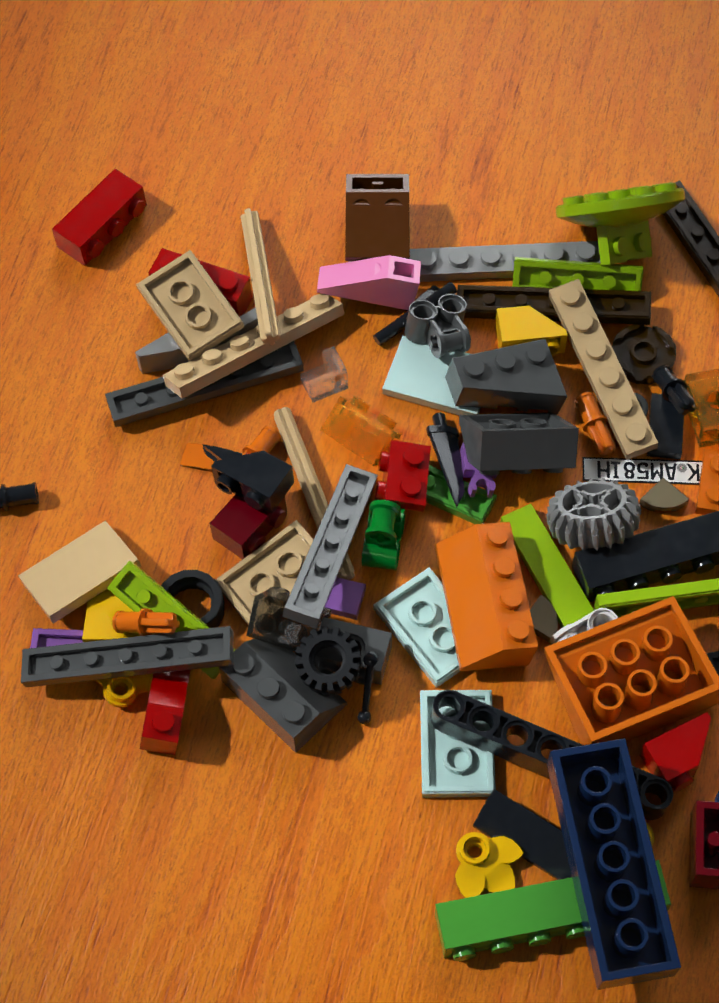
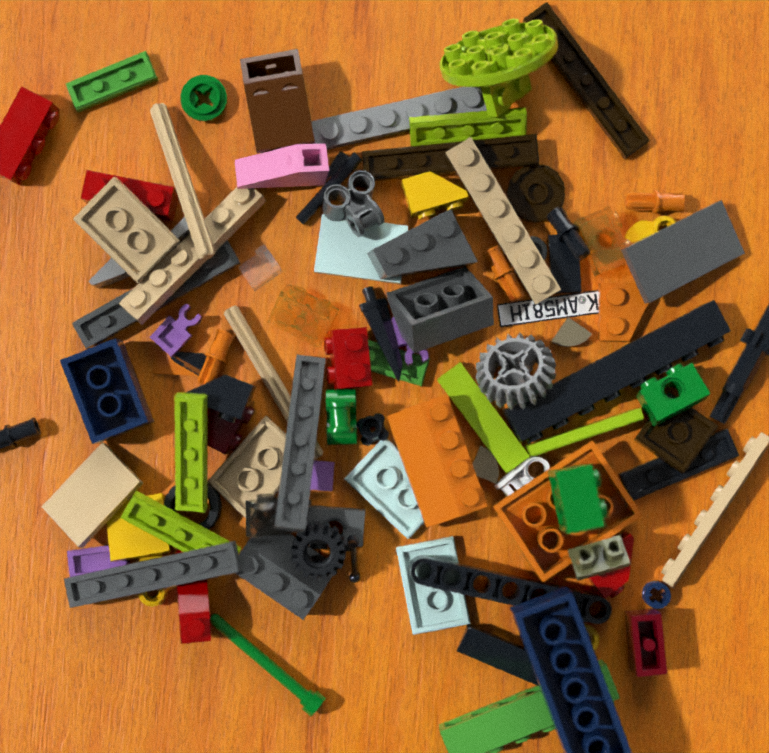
camera: 15 degrees left, 25 degrees up
(126, 464) = (107, 391): none -> dark blue brick
(145, 622) = (160, 546): orange axle -> none
(205, 528) = (191, 452): none -> lime tile
(207, 187) = (111, 81): none -> bright green tile
(215, 424) = (173, 333): none -> medium lavender plate
(281, 849) = (309, 699): none -> green piece
(301, 203) = (203, 84): none -> green gear
(417, 556) = (367, 423): none -> black plate
(490, 869) = (475, 685): yellow plate -> none
(645, 636) = (577, 498): none -> green brick
(664, 717) = (599, 557): none -> olive hips

